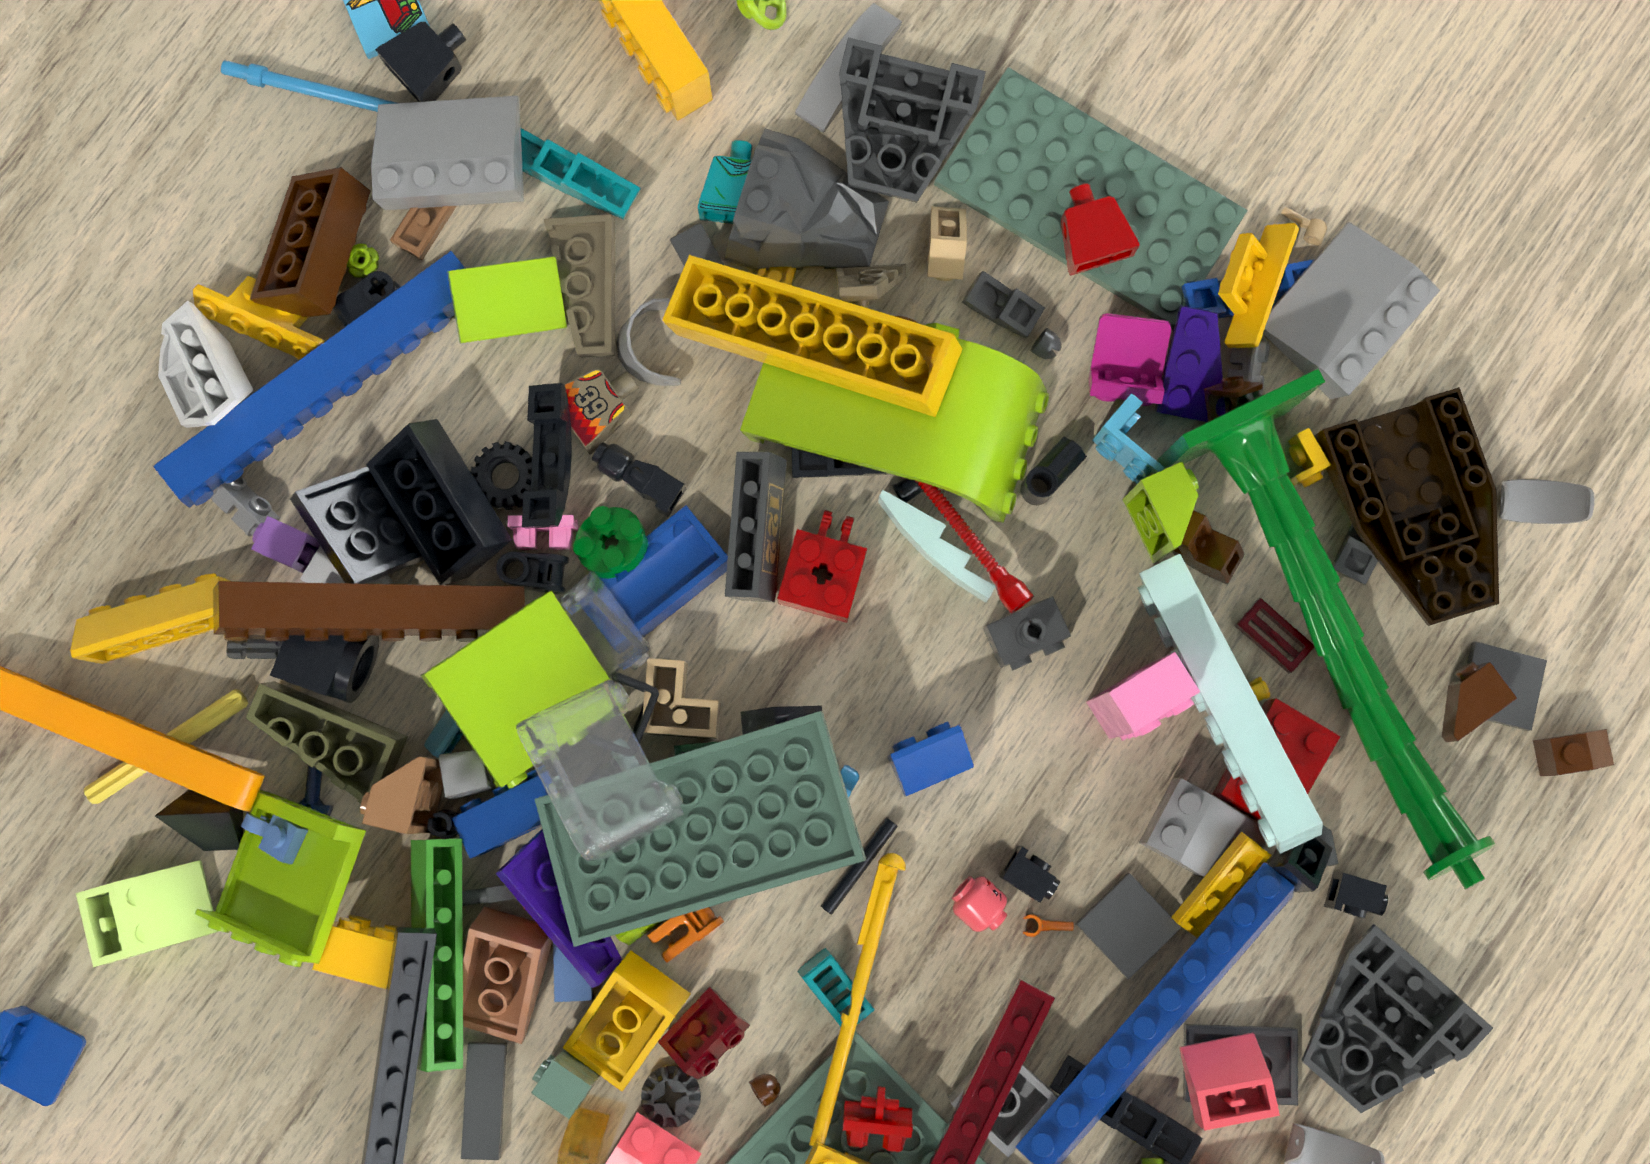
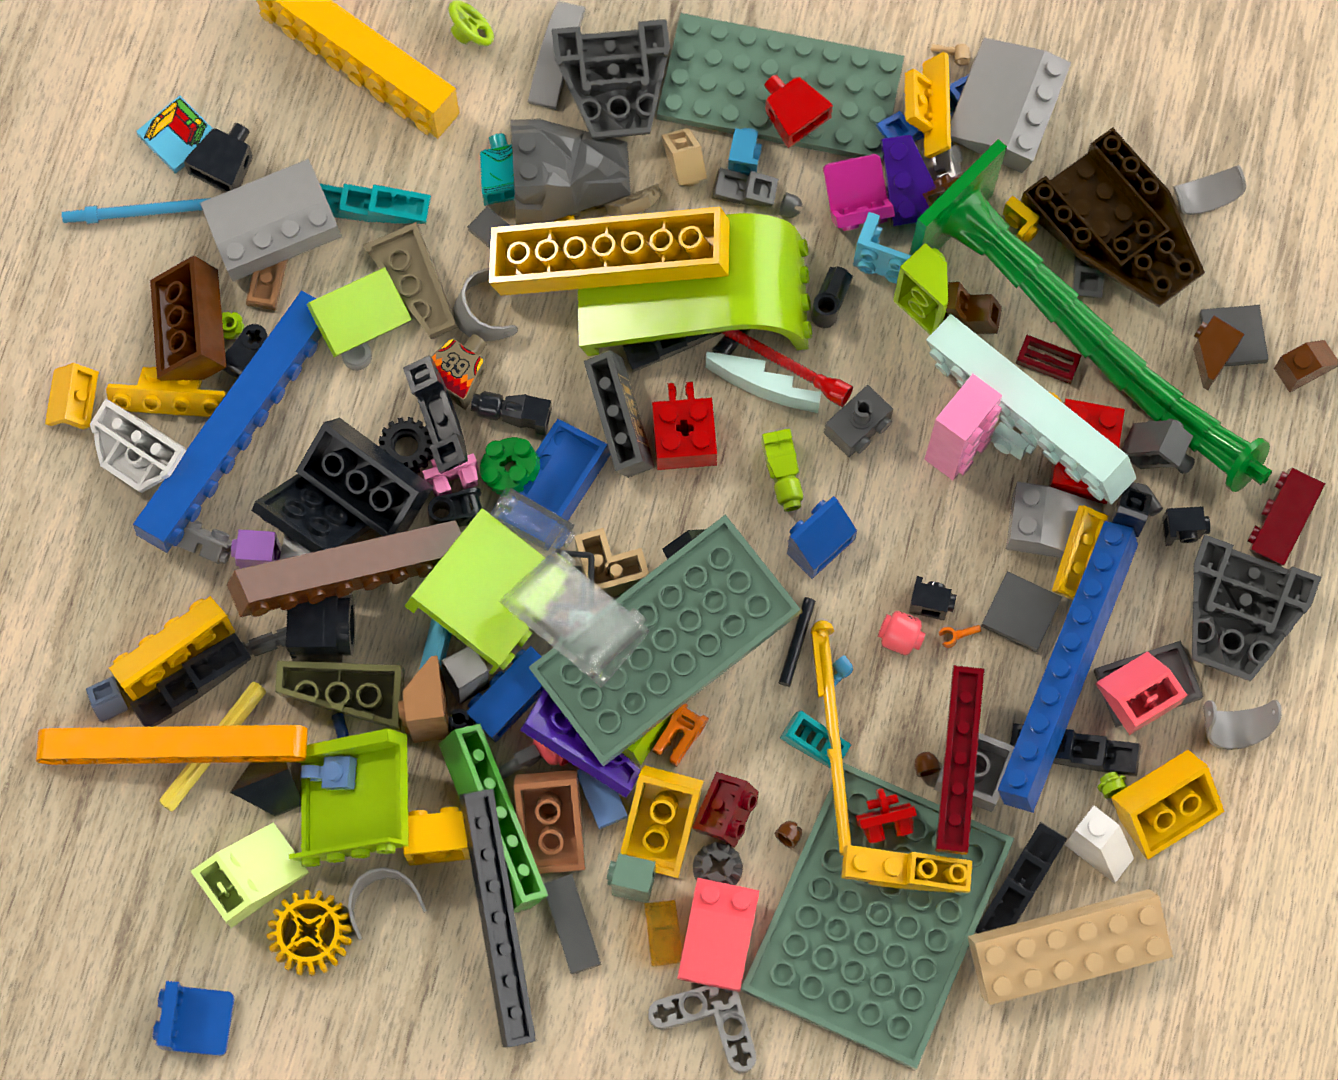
camera: 20 degrees left, 10 degrees down
(59, 650) = (106, 699): none -> sand blue slope
(158, 282) = (72, 396): none -> yellow panel
(164, 665) = (191, 682): none -> black slope
(195, 1018) = (292, 912): none -> yellow gear
(312, 977) = (368, 878): none -> light grey piece
(492, 350) = (358, 357): none -> light grey tile
(899, 916) = (843, 668): none -> dark azure hand
(919, 658) = (783, 468): none -> lime piece
(950, 1066) = (926, 764): none -> reddish brown hinge
(1018, 261) = (744, 151): none -> dark azure brick
(1194, 723) = (1010, 441): none -> light aqua bracket
(1362, 792) = (1159, 445): none -> dark grey brick
(1480, 930) = (1285, 515): none -> dark red wedge

